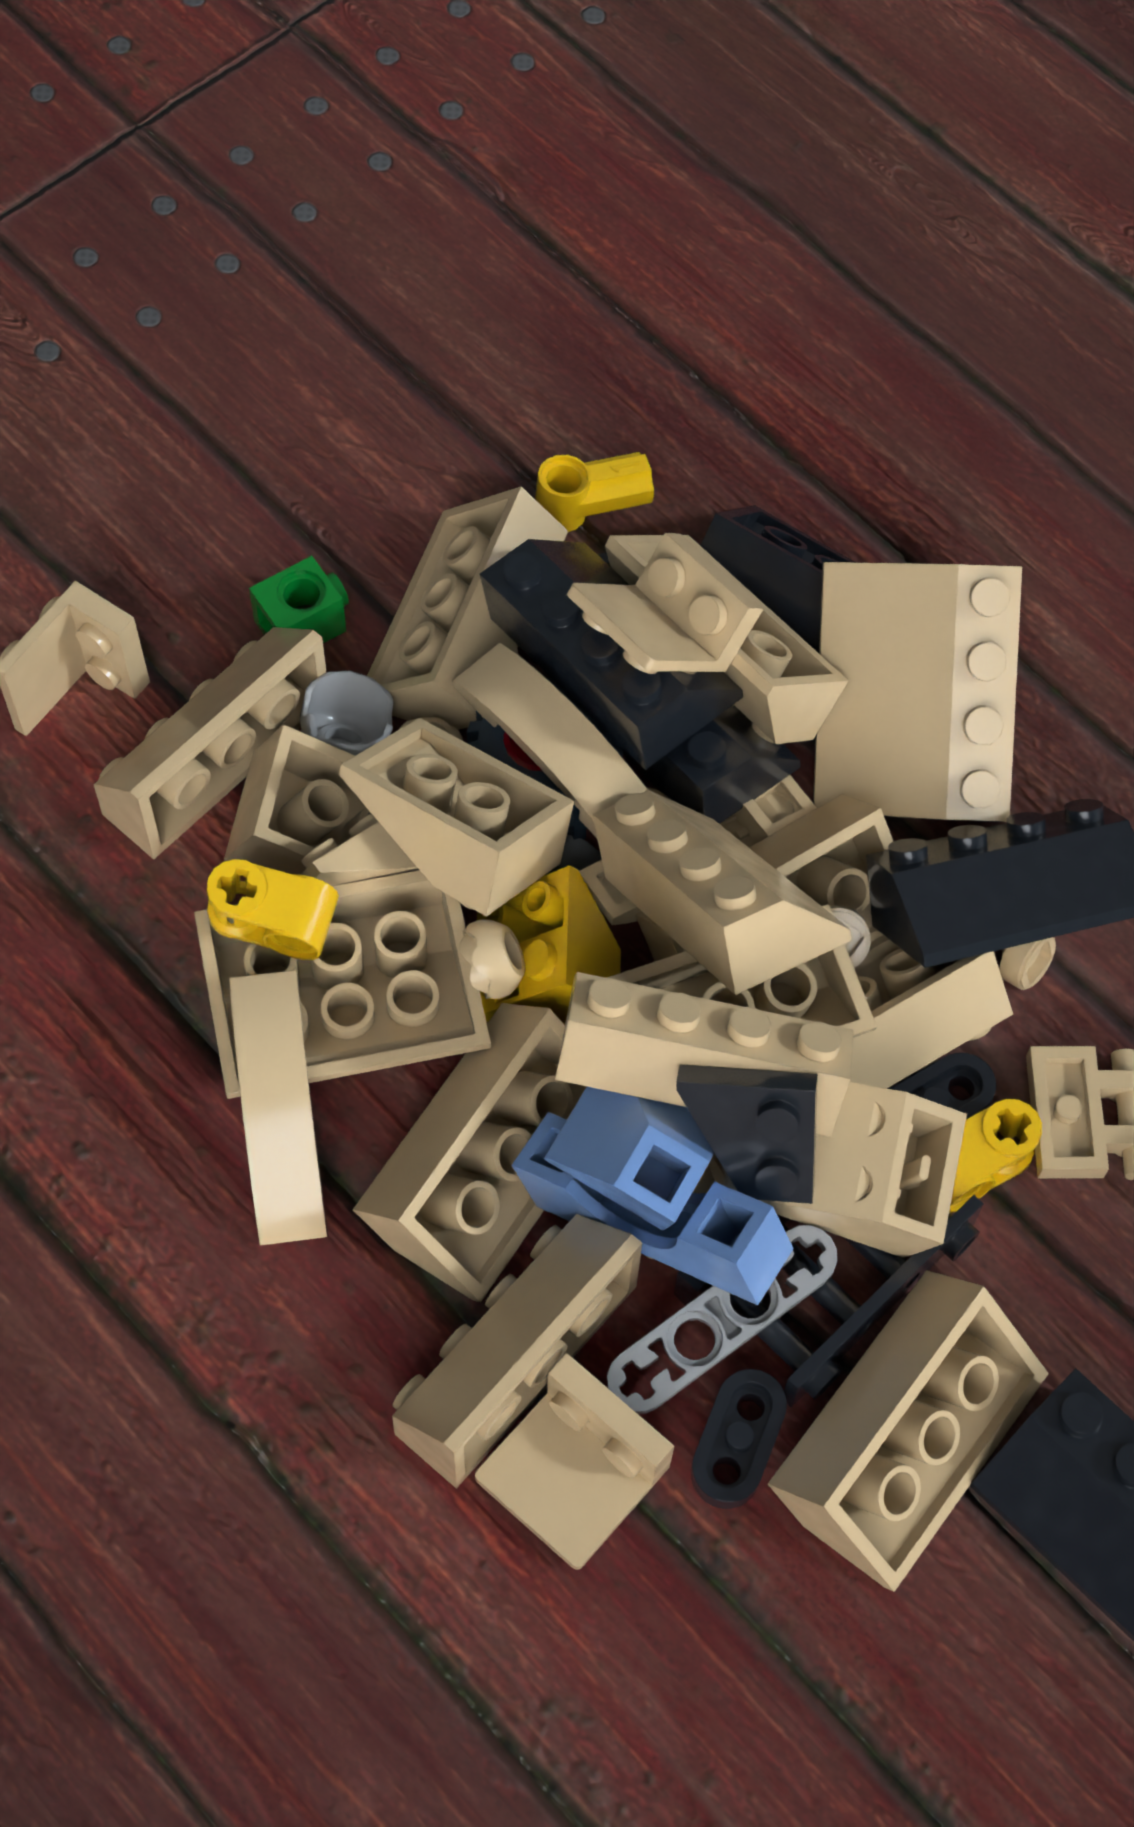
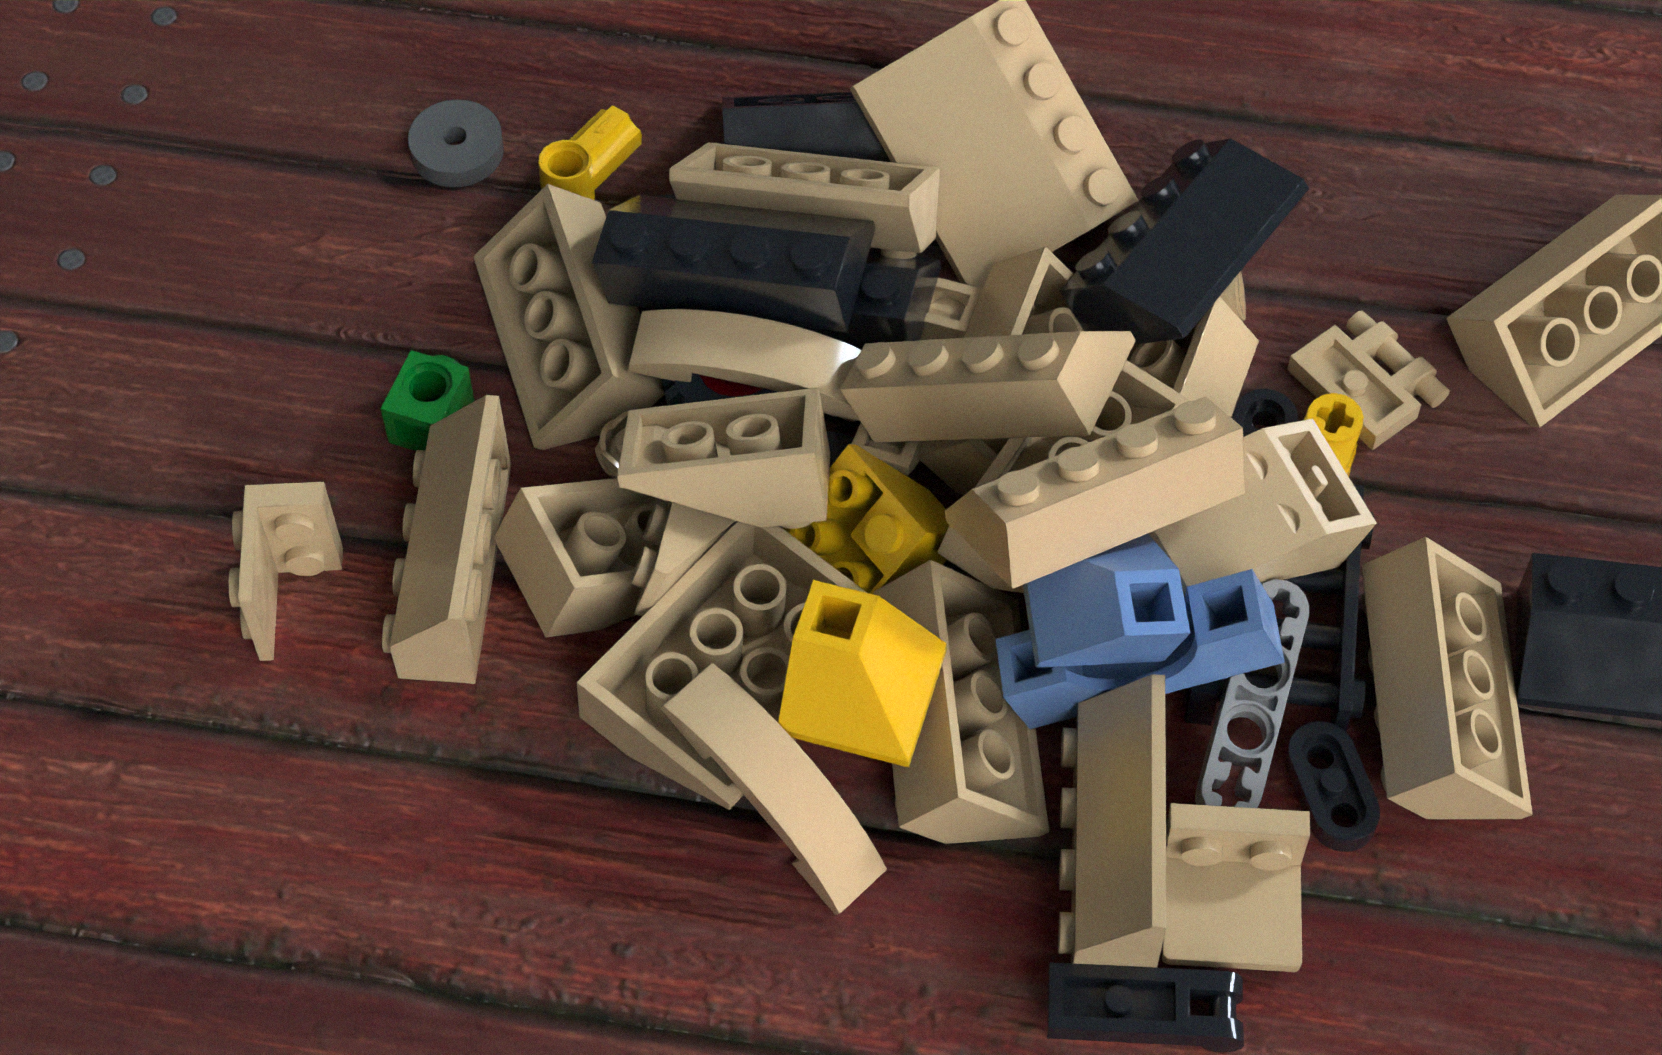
camera: 35 degrees left, 5 degrees down
(279, 908) = (649, 628): yellow piece -> none
(347, 711) = (548, 453): light grey hair -> none
(399, 1063) = (859, 675): none -> yellow slope
(422, 1501) = (1144, 1005): none -> black plate
(494, 958) = (852, 552): tan plate -> none
(508, 386) = (461, 163): none -> dark grey piece
(676, 615) = (787, 183): tan bracket -> none
(757, 1127) = (1197, 514): black wing -> none

